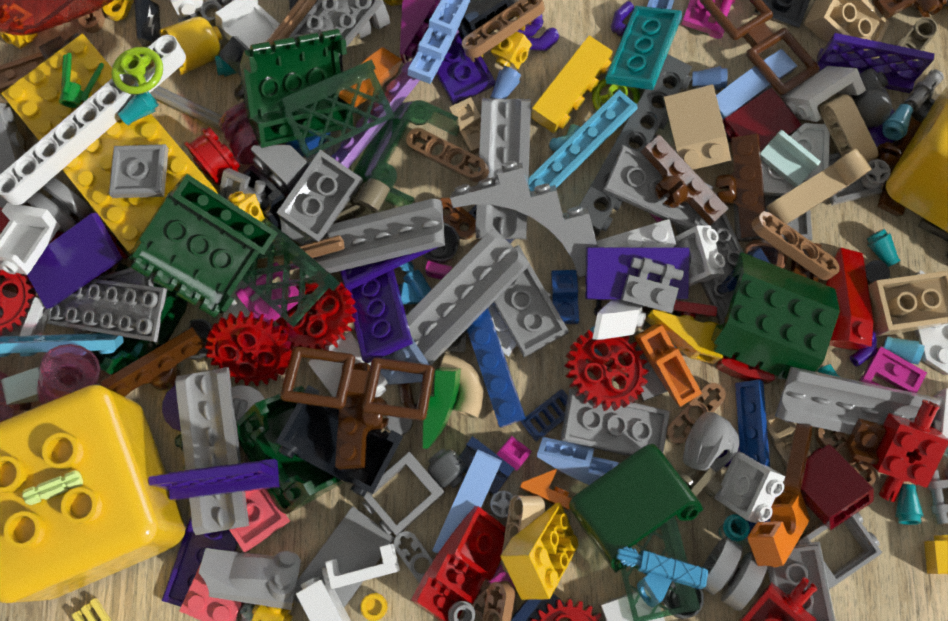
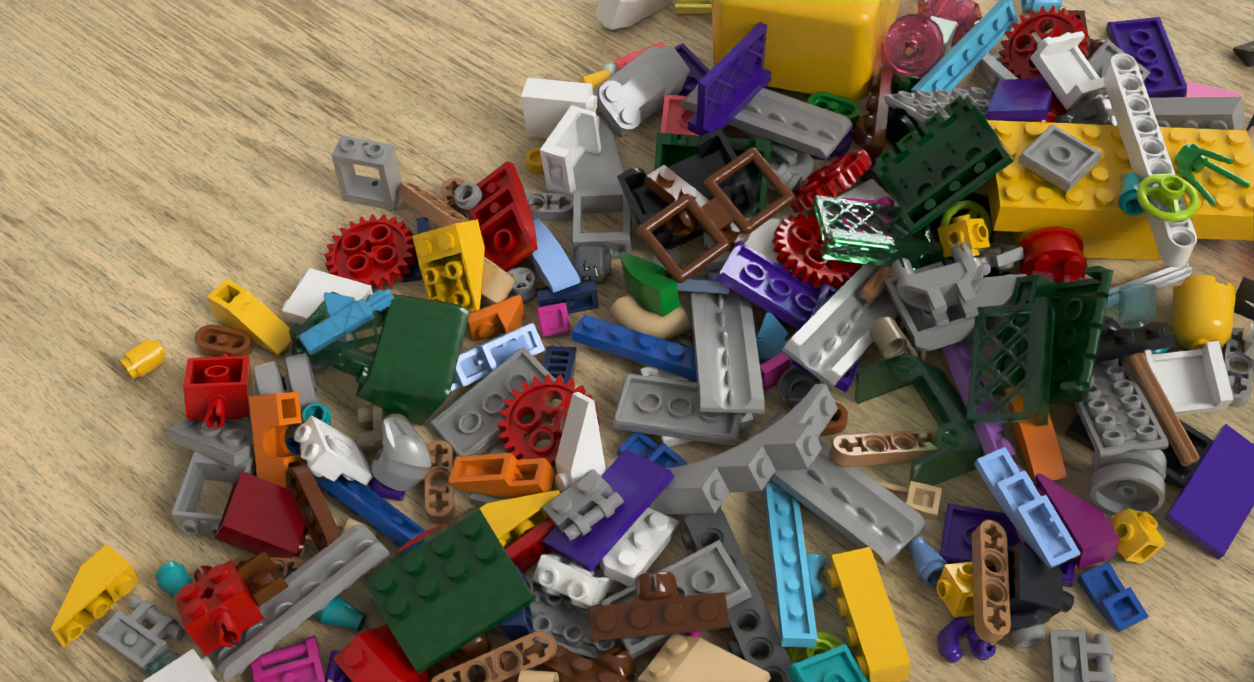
camera: 135 degrees right, 25 degrees down
(63, 198) = (1088, 113): none -> clear smoke plate
(160, 413) = (836, 104): none -> green plate
(208, 89) = (1137, 304): none -> clear light blue brick
(264, 387) = (789, 178): none -> light grey wheel
(313, 186) = (942, 286): none -> light grey connector

